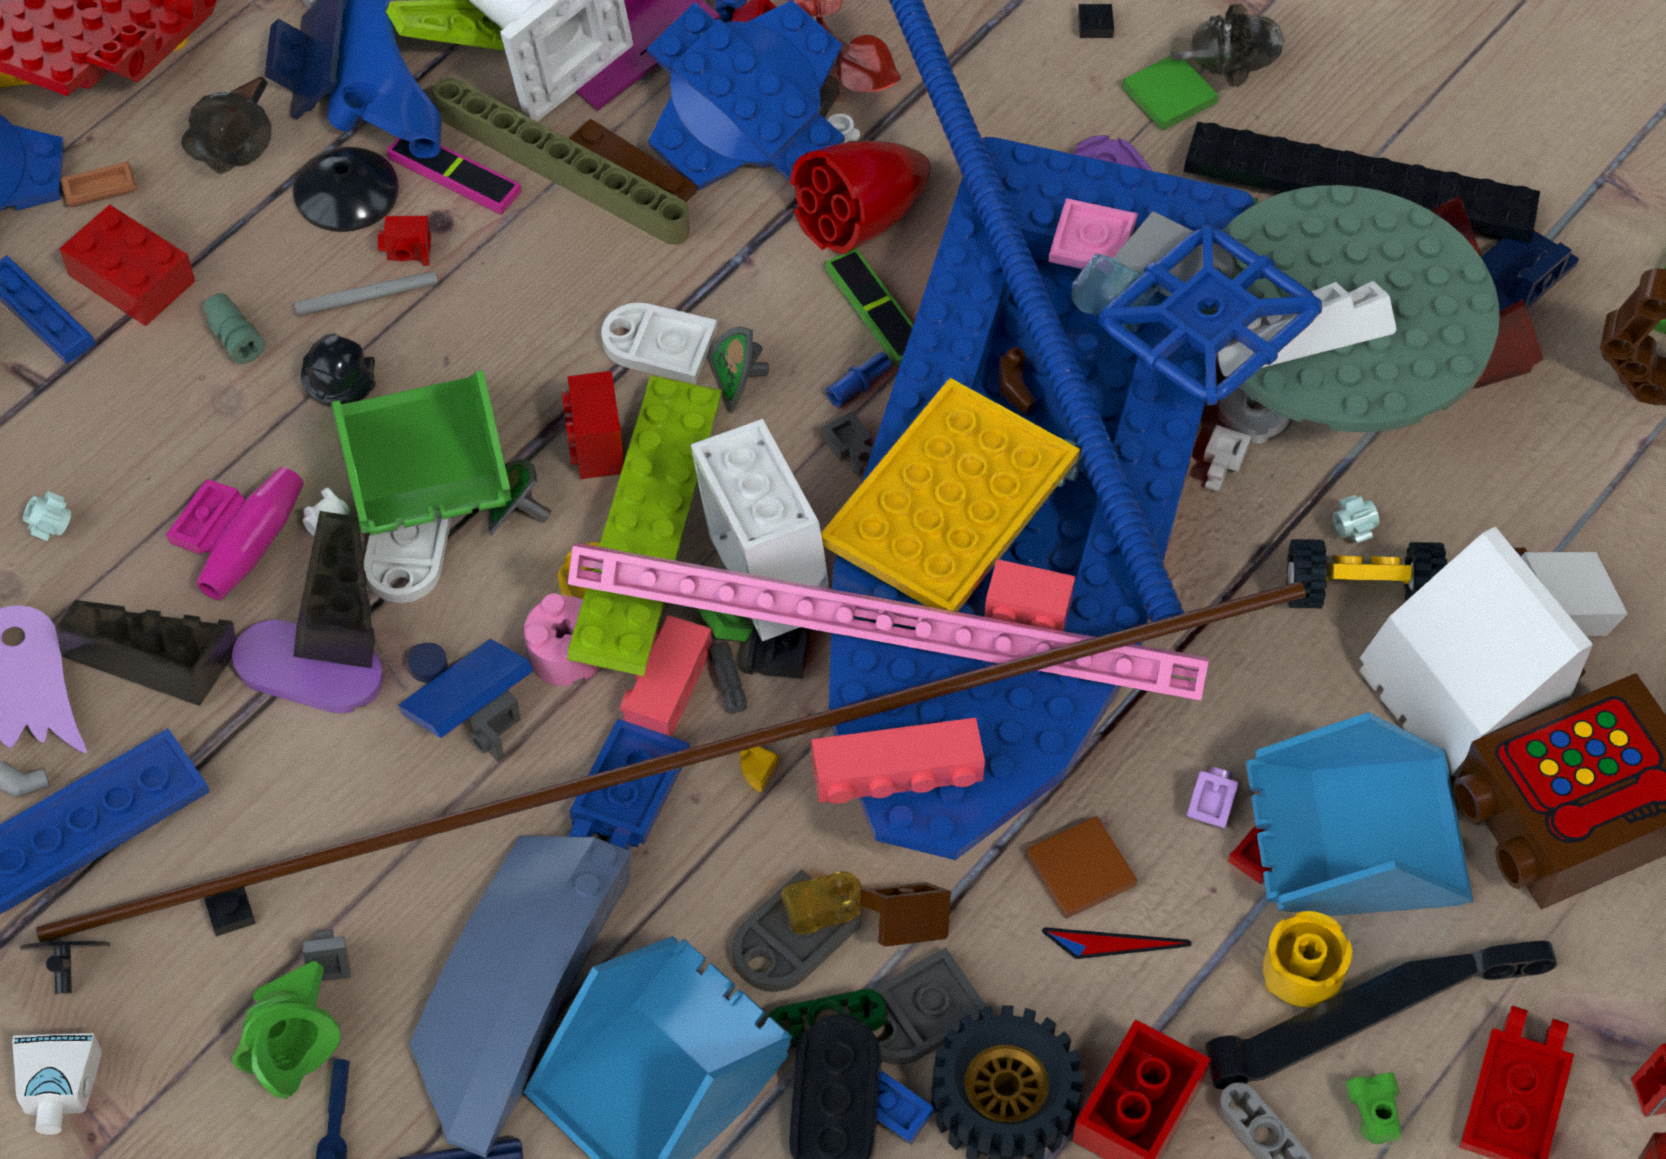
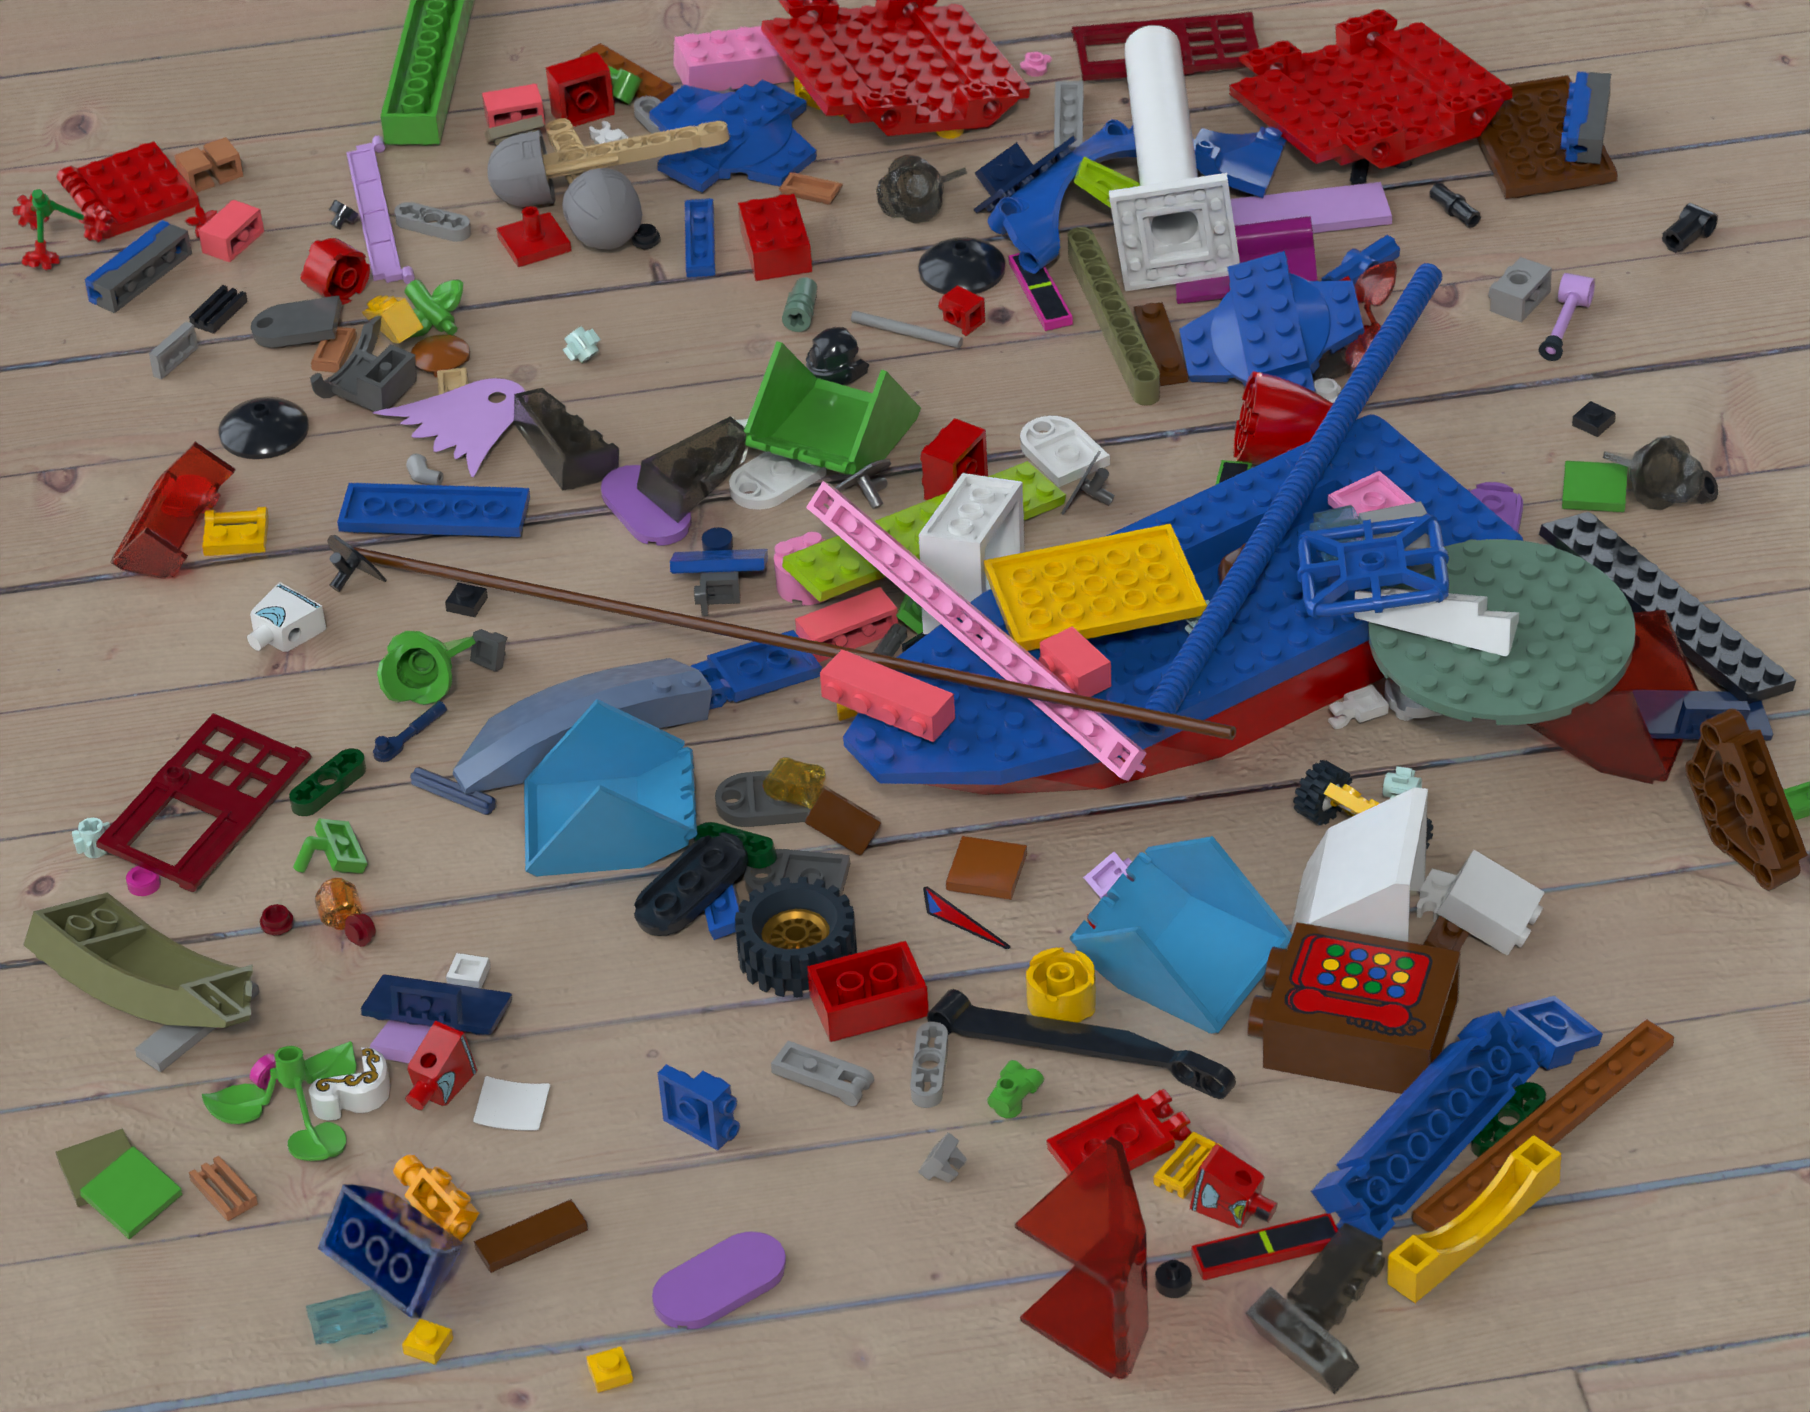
camera: 45 degrees right, 15 degrees down
(234, 528) = (681, 409): dark pink plate -> none
(1605, 1101) = (1186, 1177): none -> yellow tile

